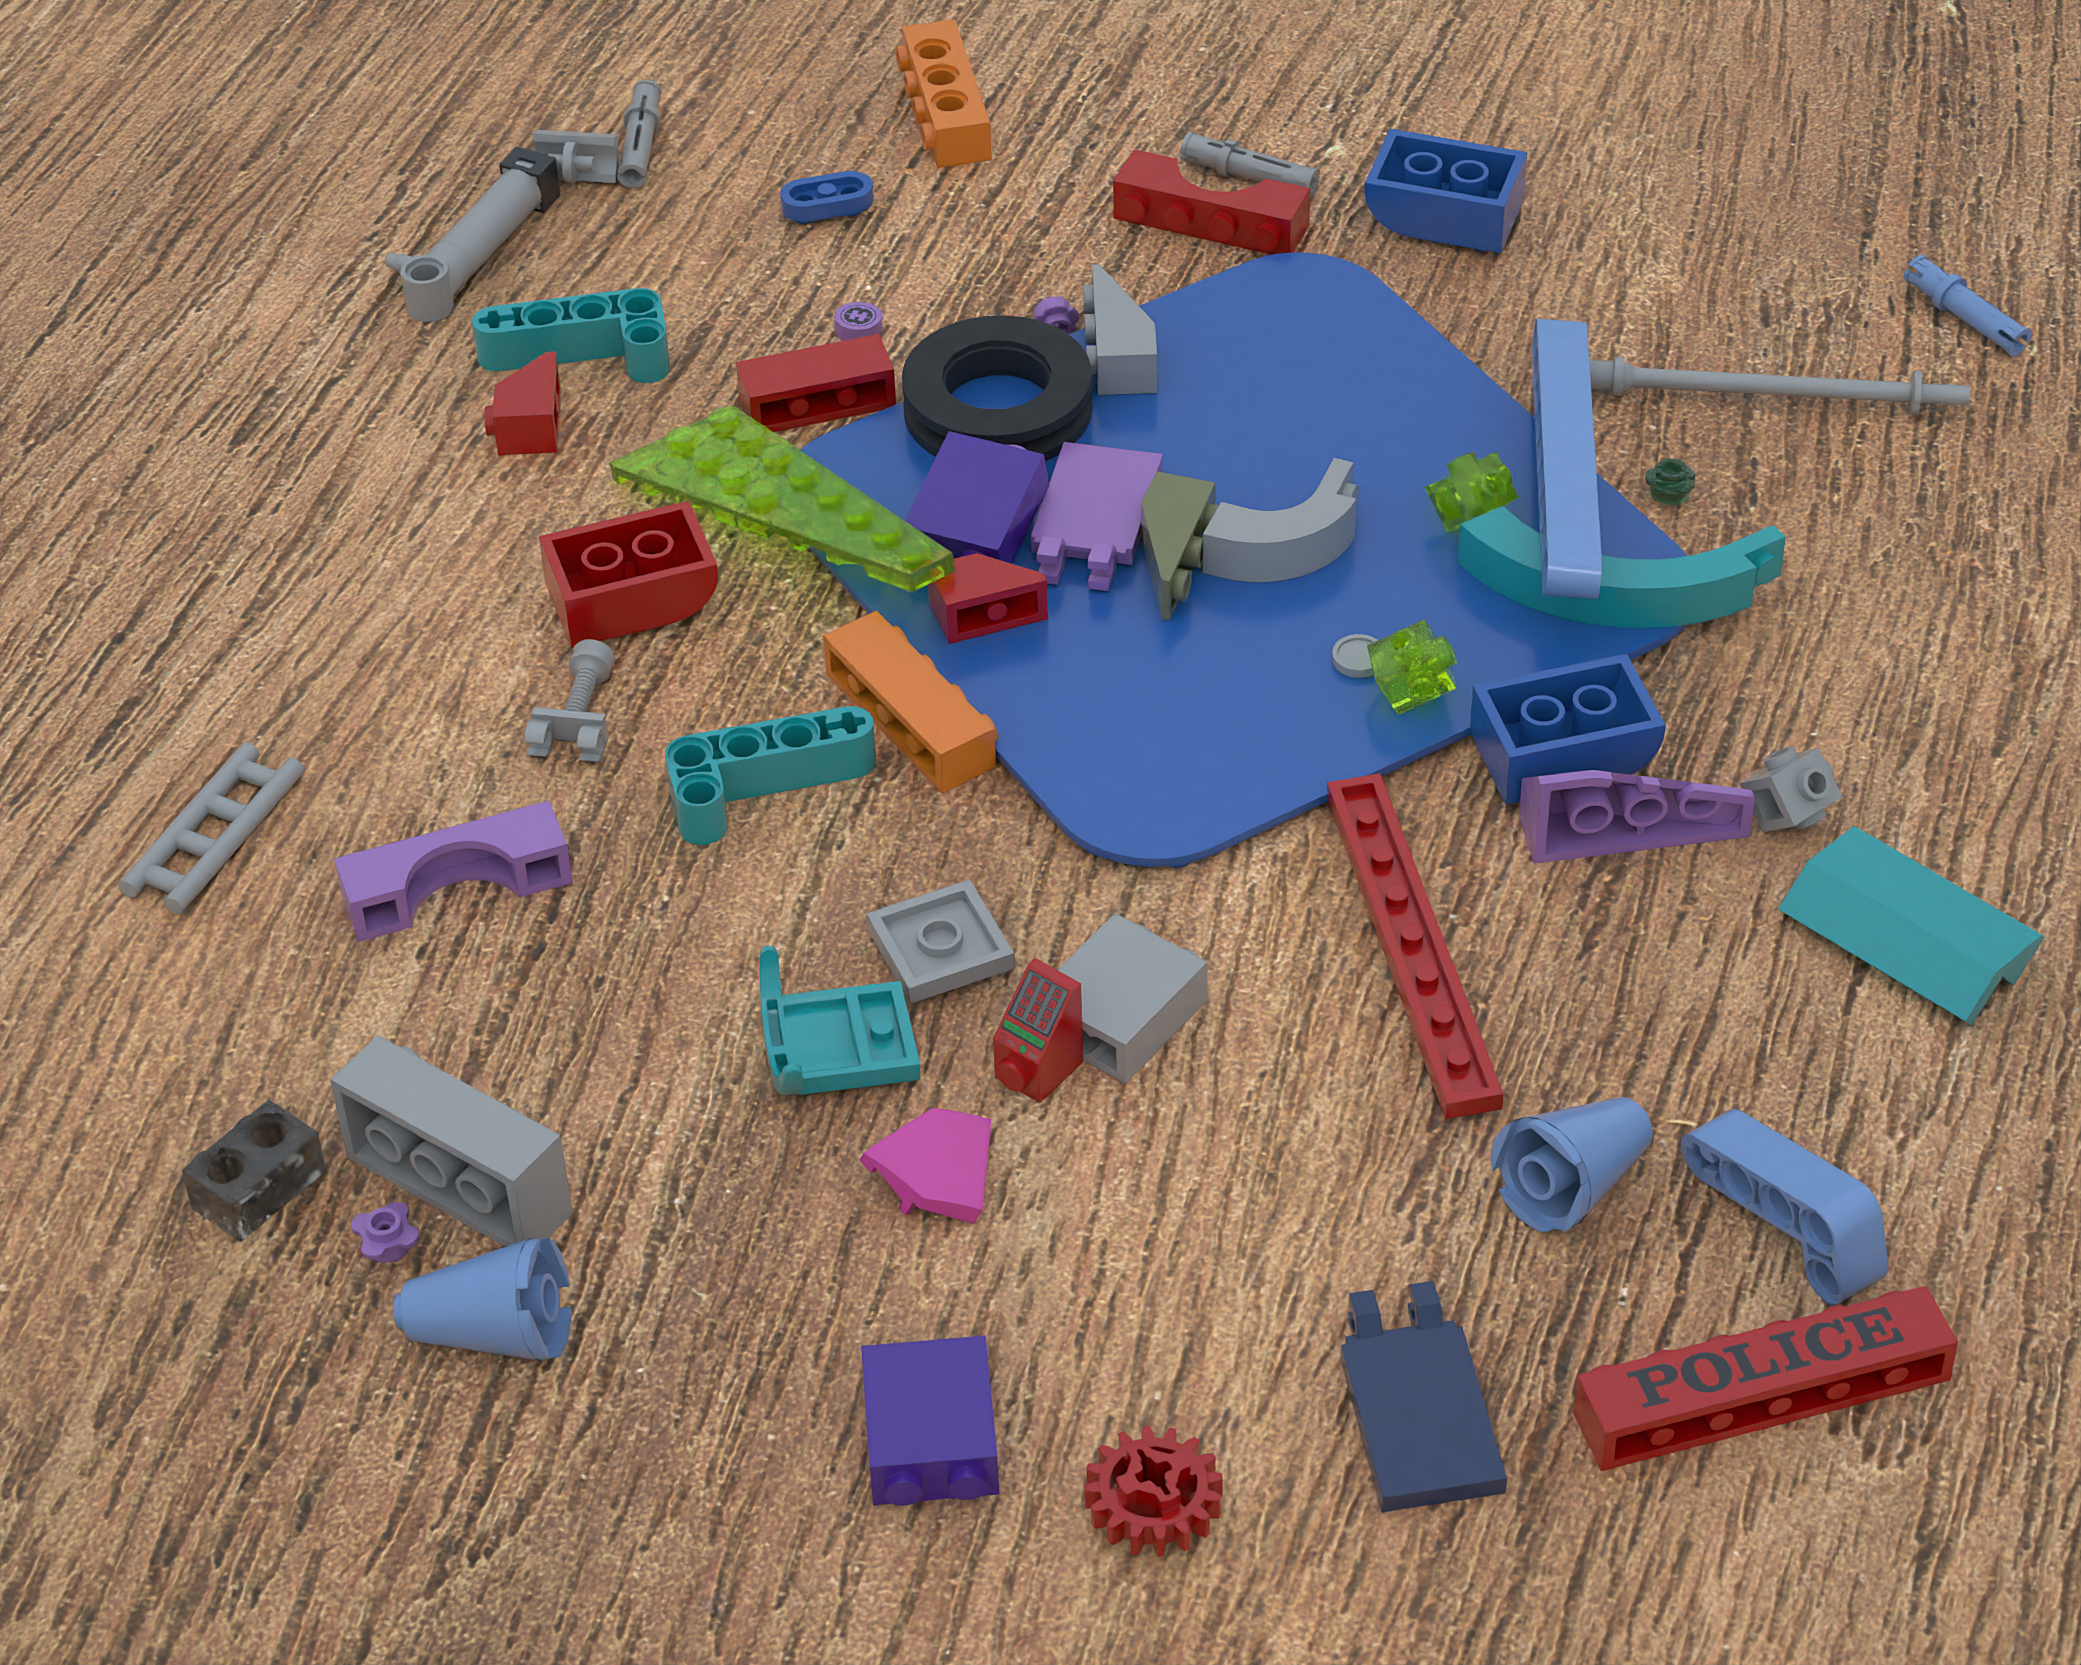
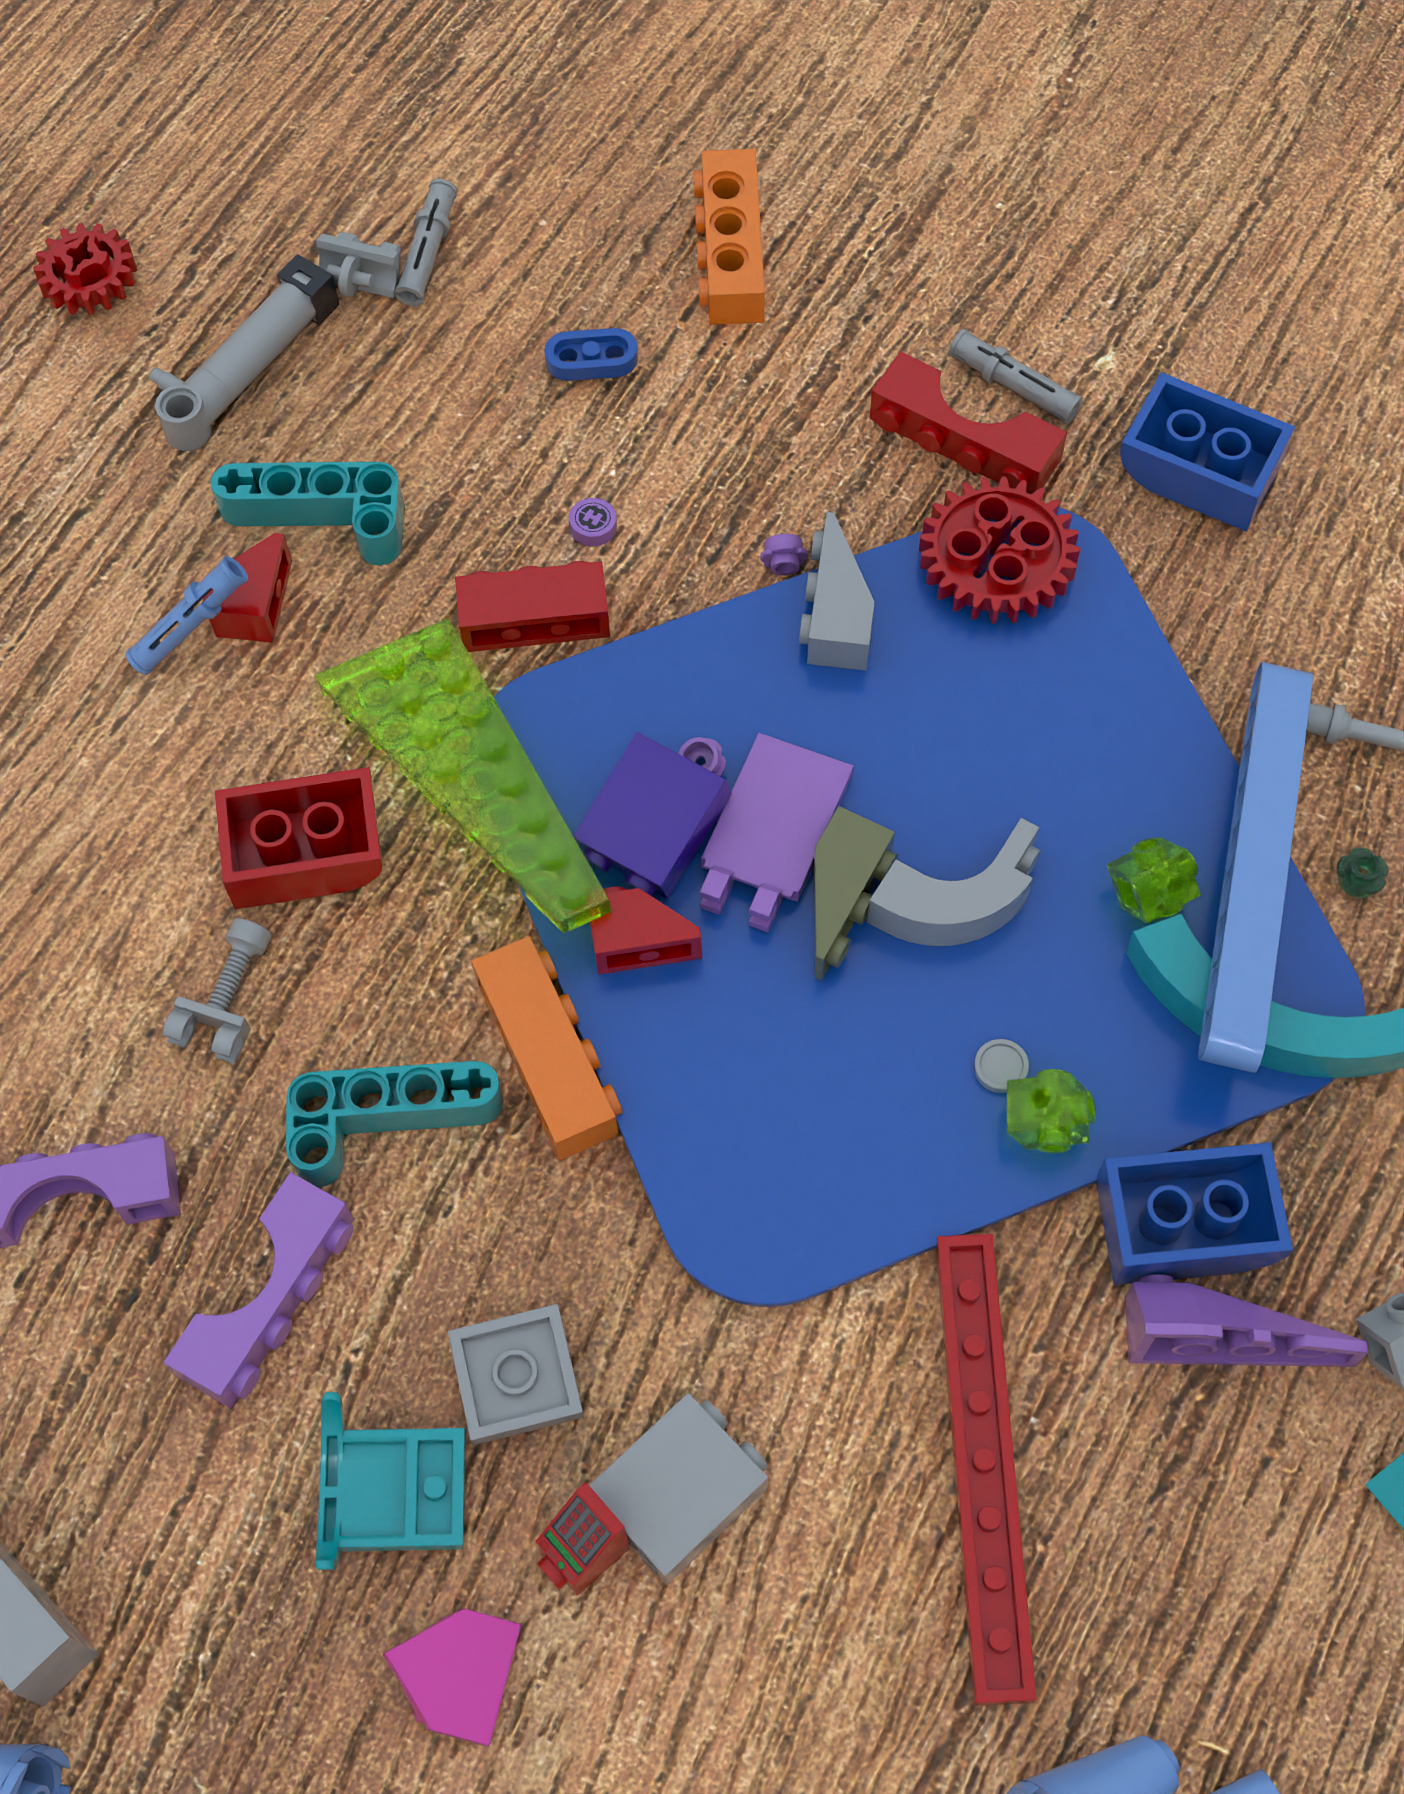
camera: 10 degrees right, 20 degrees up
(297, 190) = (85, 268): none -> red gear
(474, 420) = (222, 579): none -> medium blue pin
(649, 958) = (225, 1350): none -> medium lavender arch
(1001, 348) = (692, 595): black tyre -> none
(1291, 294) = (962, 527): none -> red gear

